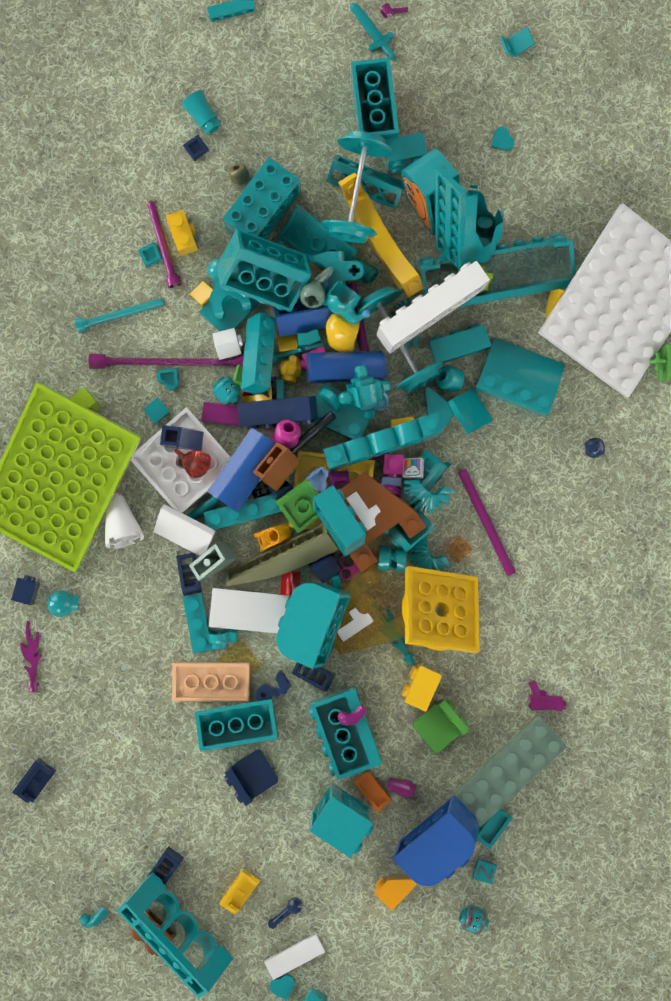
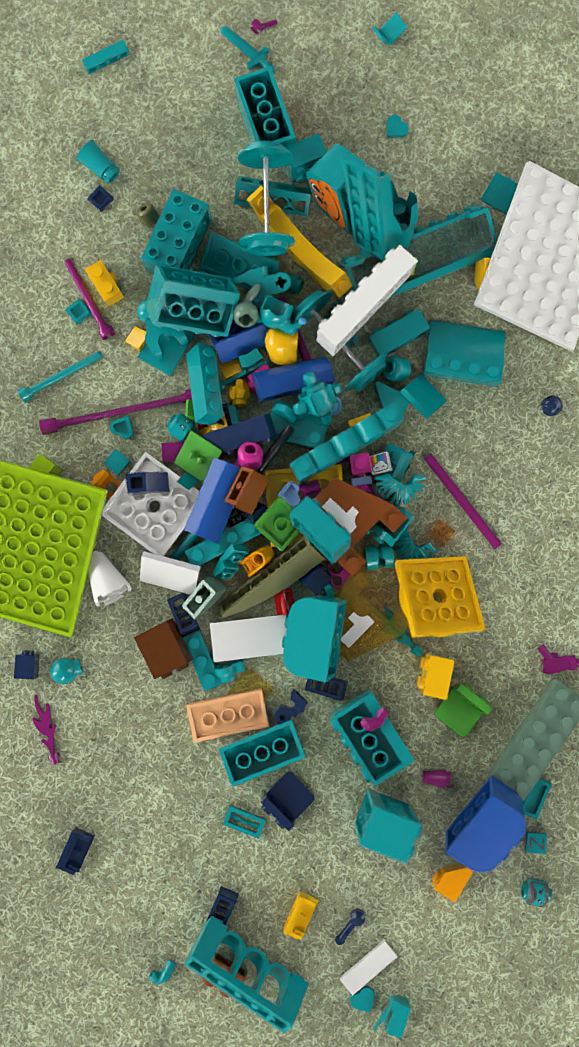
camera: 10 degrees left, 0 degrees up
(138, 424) = (102, 478): none -> light orange bracket
(162, 603) = (164, 649): none -> reddish brown brick
(195, 462) = (165, 504): clear red piece -> none
(199, 794) = (246, 814): none -> teal tile
(225, 442) = (187, 480): none -> teal sticker
(227, 343) = (172, 381): white brick -> none
(236, 422) = (197, 455): none -> bright green piece
(244, 532) = (229, 561): none -> teal slope
(372, 791) = (409, 788): orange tile -> none
(590, 226) = (500, 193): none -> teal piece

